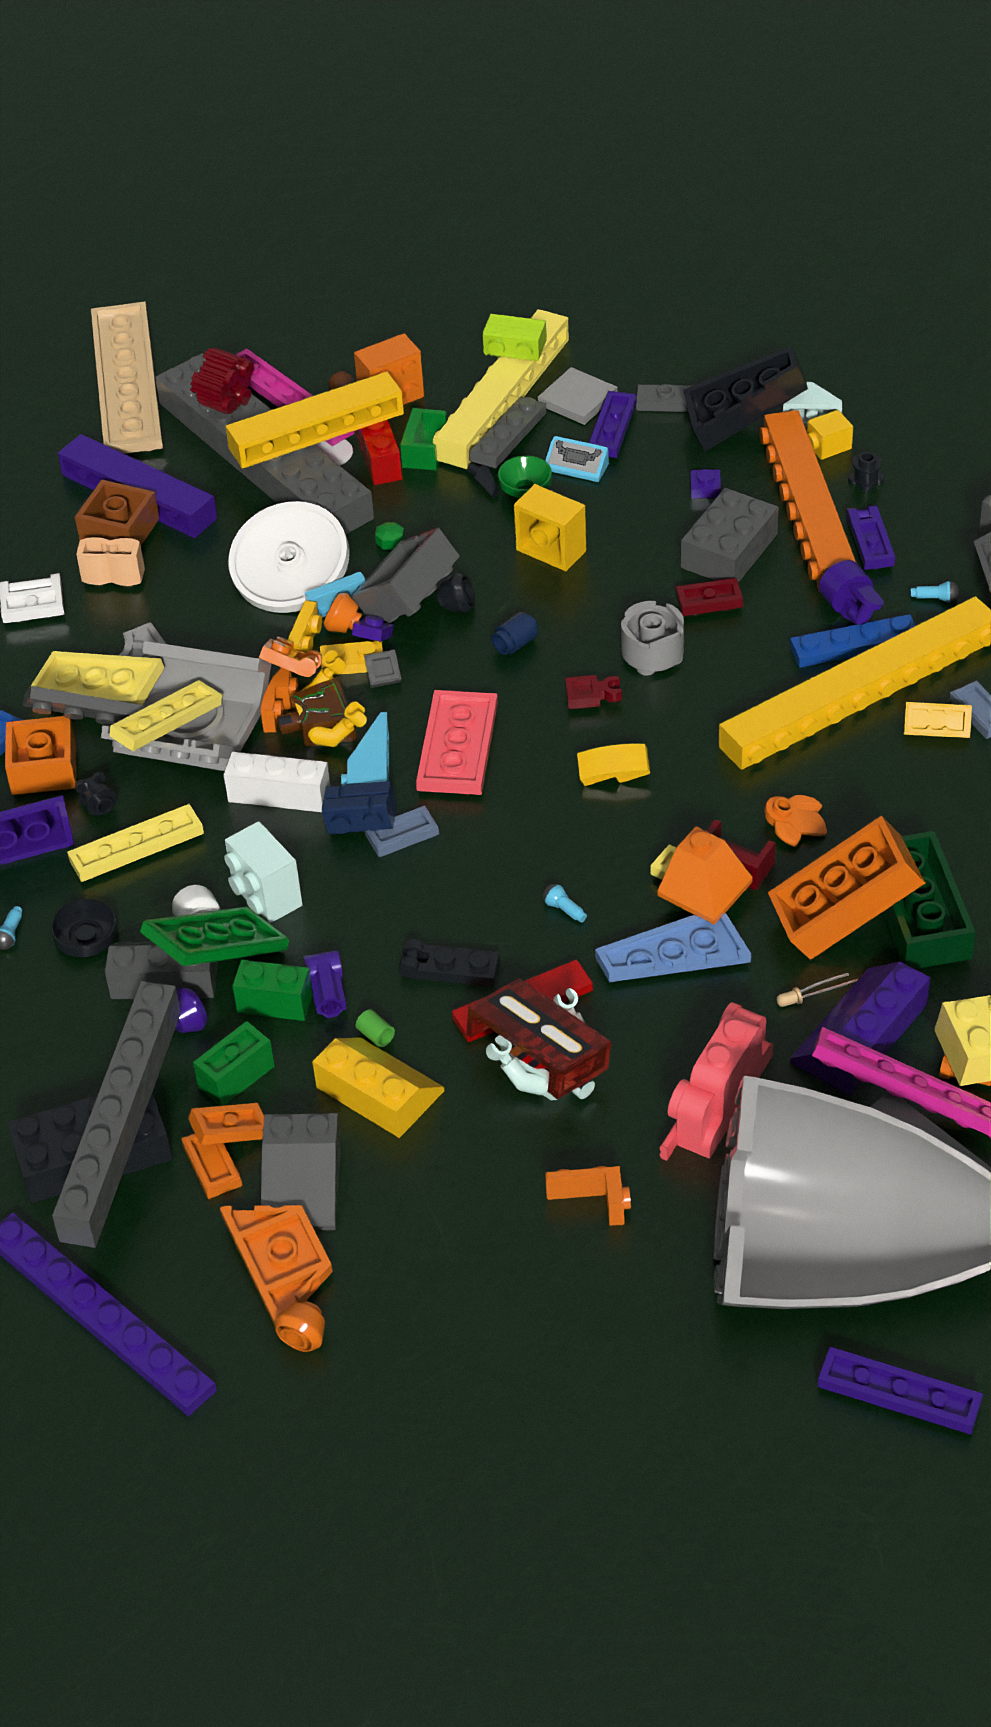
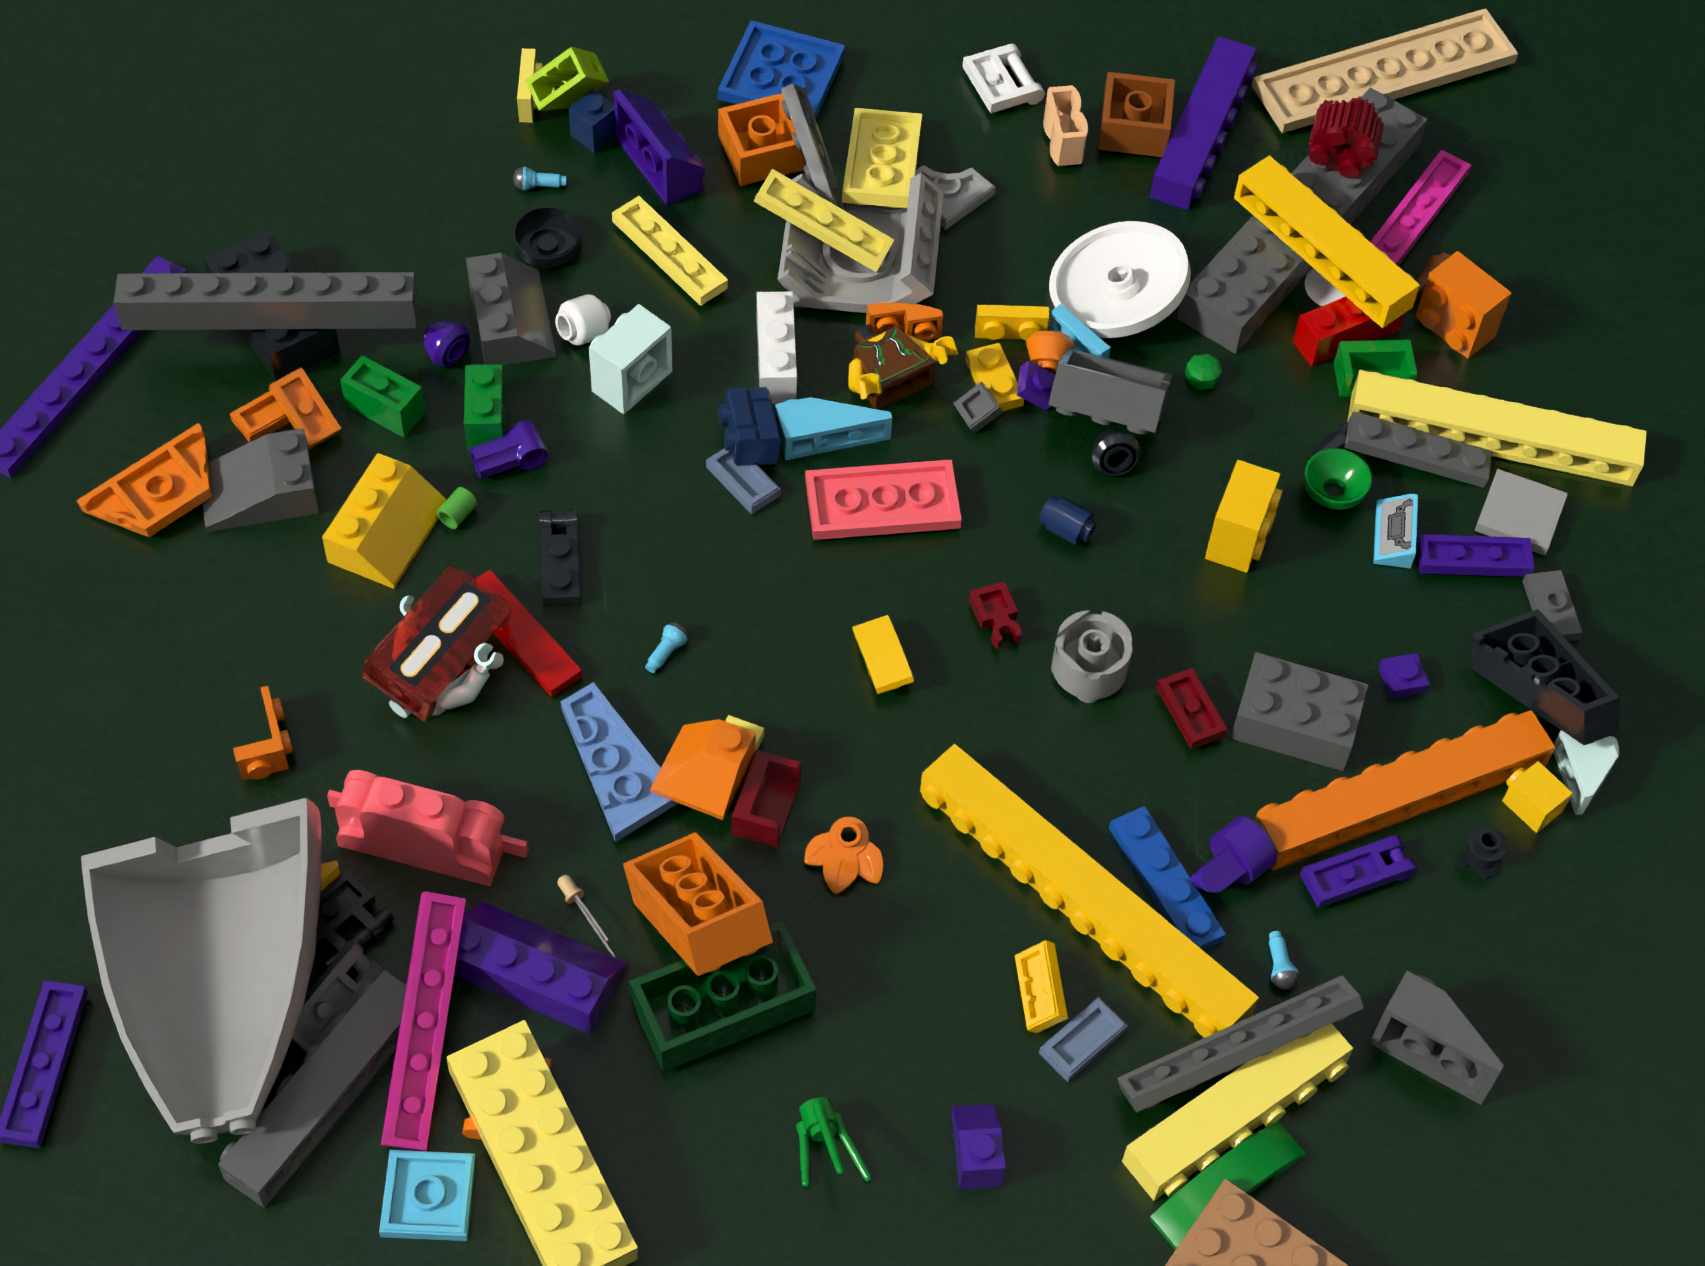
camera: 70 degrees right, 10 degrees up
(95, 794) = (725, 201): black brick -> none
(214, 936) = (526, 334): green tile -> none
(284, 655) = (947, 300): orange plate -> none
(301, 1326) = (72, 521): orange cone -> none
(514, 337) = (1561, 409): lime brick -> none

